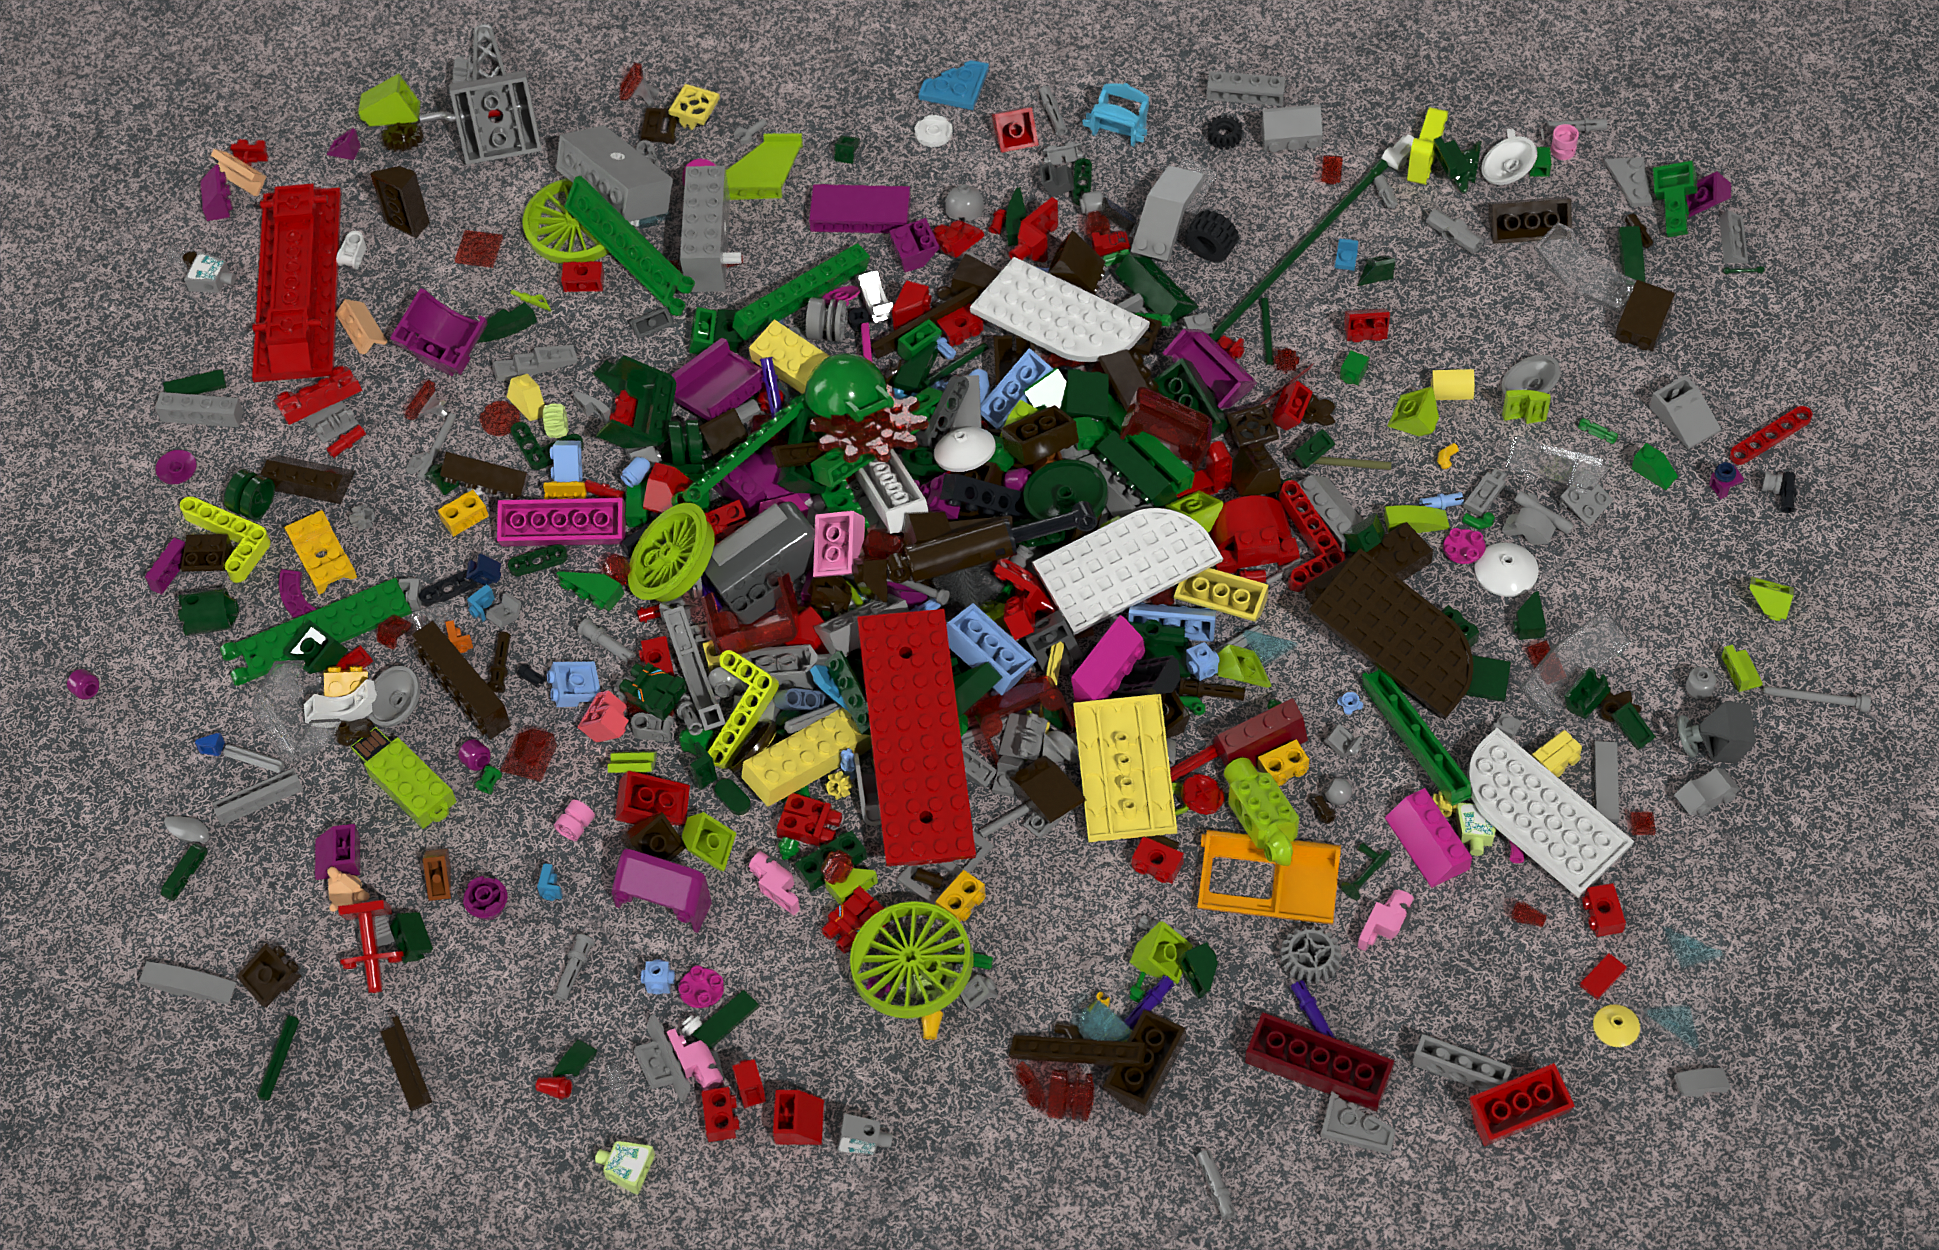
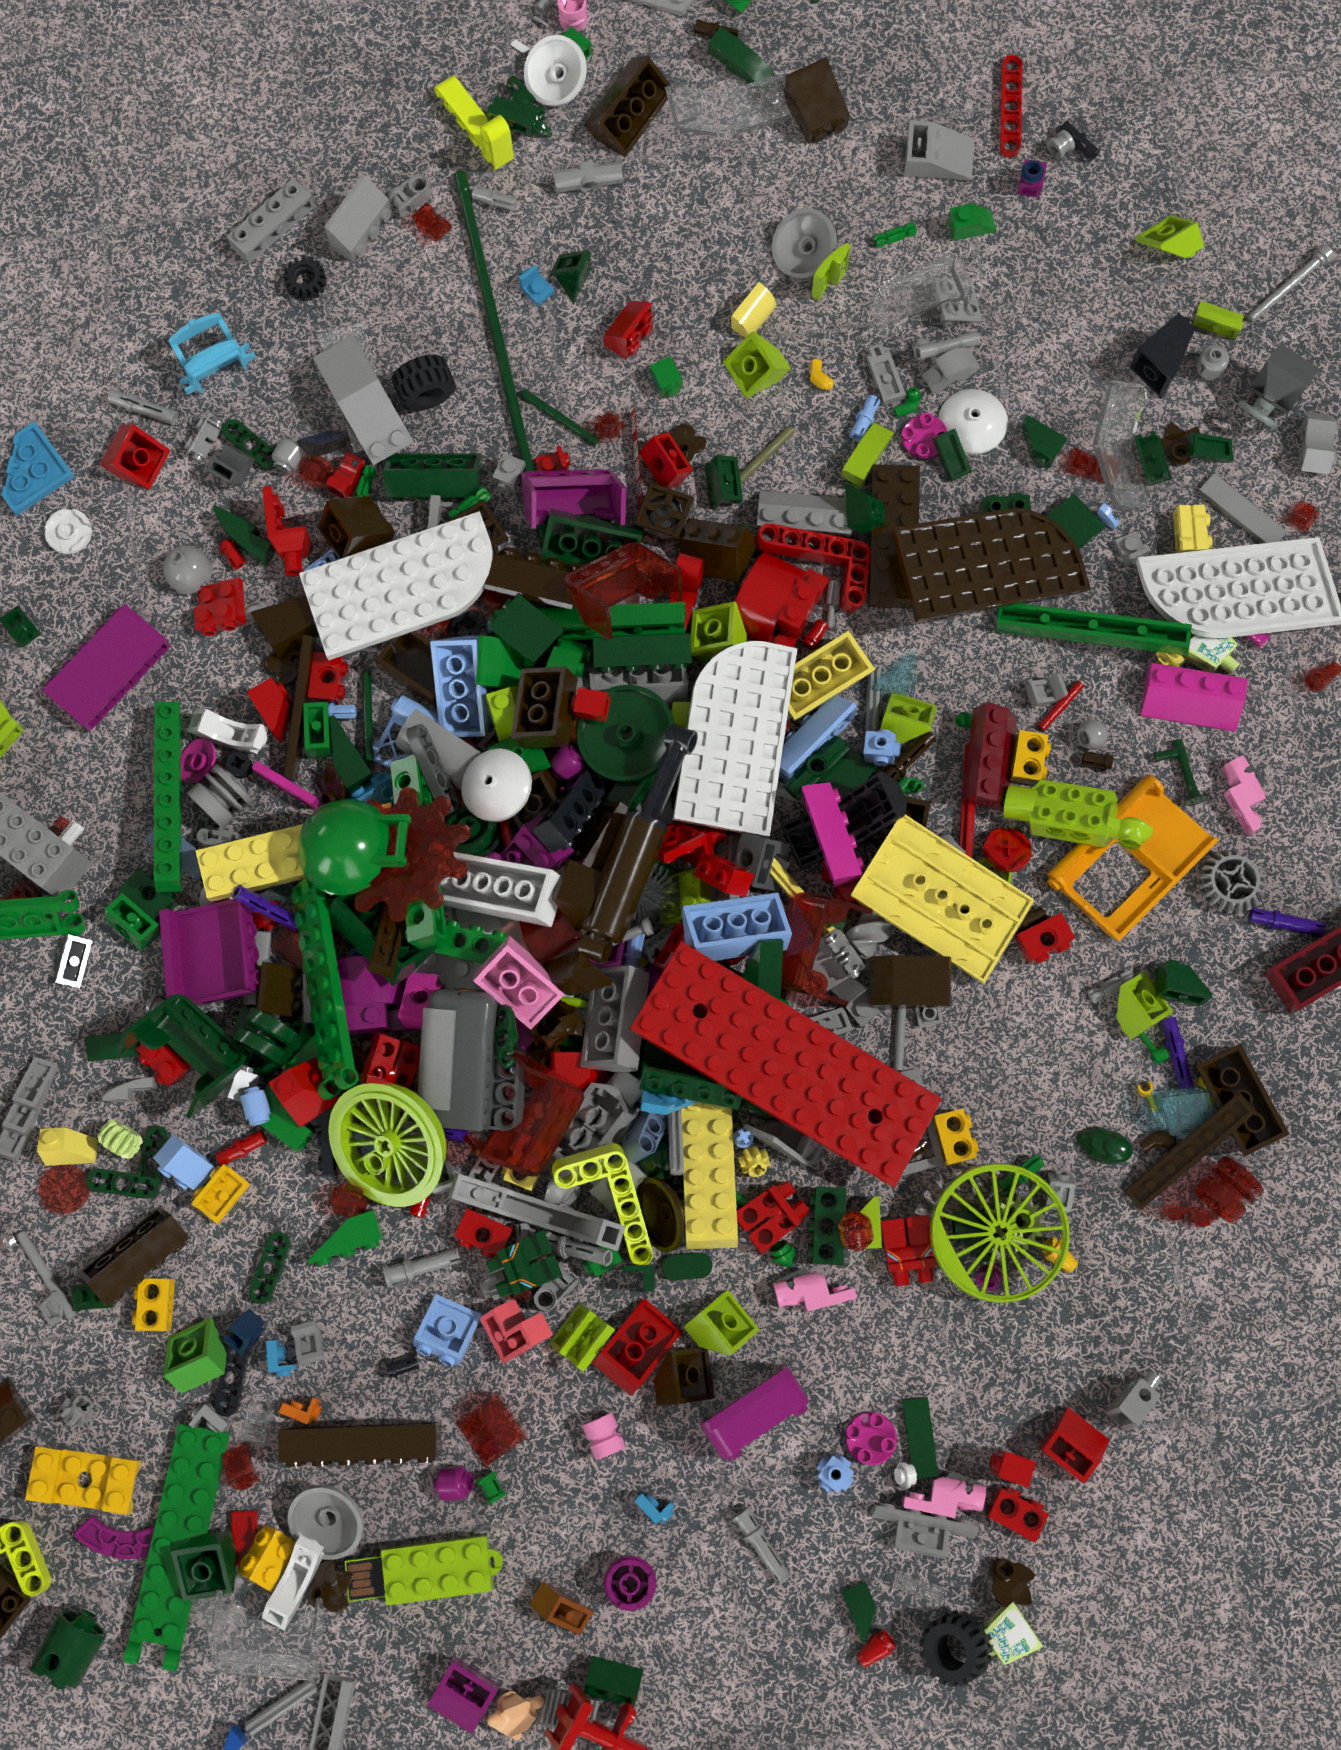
camera: 55 degrees left, 20 degrees up
(445, 555) = (194, 1356): none -> bright green slope
(499, 670) = (370, 1397): dark brown pin -> none
(561, 522) = (251, 1218): dark pink brick -> none
(591, 1128) = (940, 1659): none -> black tyre
(666, 1146) = (1012, 1585): none -> dark brown plate
(794, 560) = (503, 1047): none -> dark green piece
(914, 244) = (196, 650): magenta slope -> none
(1038, 1001) = (1105, 1145): none -> dark green arm
(1065, 457) = (591, 704): none -> red brick
(1341, 146) = (409, 196): none -> light grey piece
(1343, 761) = (1060, 706): none -> red piece
(1350, 697) = (1013, 650): light blue plate -> none
(1398, 154) = (461, 154): white piece -> none
(1465, 569) = (952, 455): none -> dark green tile
(1514, 695) = (1105, 516): none -> light blue tile
(1674, 645) = (1162, 354): none -> black slope

